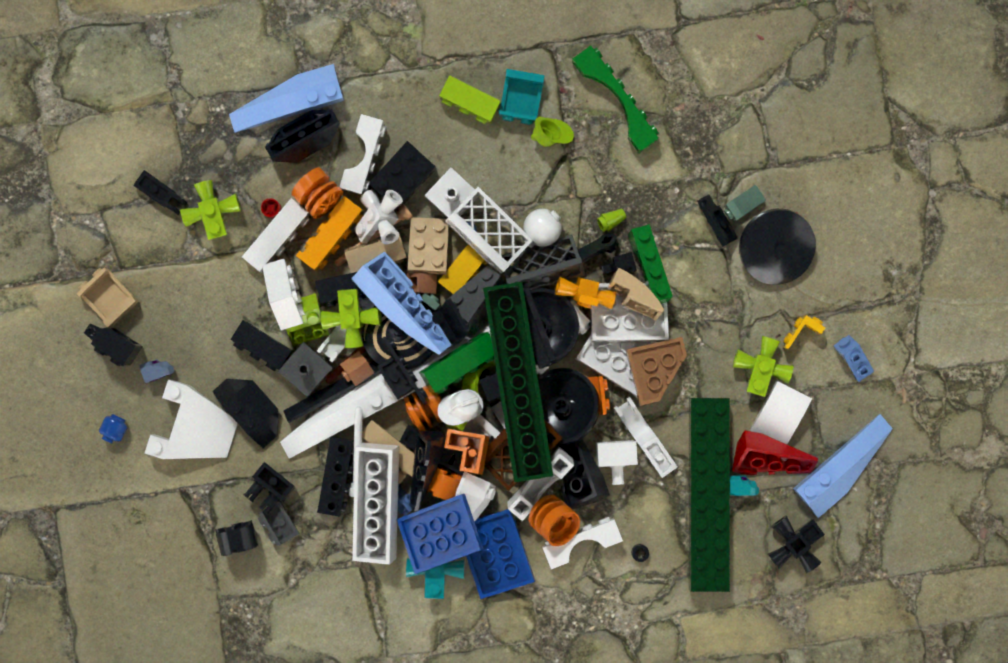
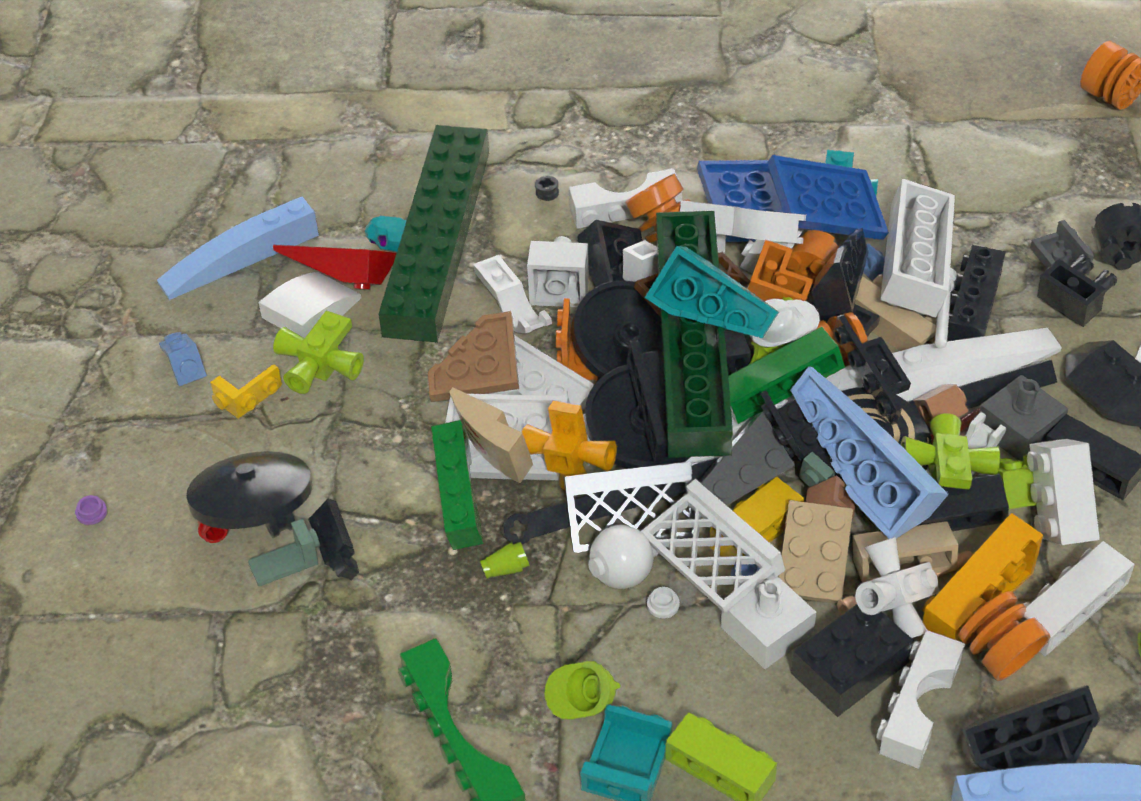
camera: 170 degrees left, 40 degrees down
(270, 208) = (1084, 637): red wheel -> none
(506, 496) = (751, 223): none -> white piece
(513, 396) = (704, 293): none -> teal wedge
(514, 203) = (663, 602): none -> white plate
(623, 261) = (500, 495): black brick -> none
(796, 543) = (332, 170): black brick -> none
(873, 226) = (90, 510): none -> medium lavender plate

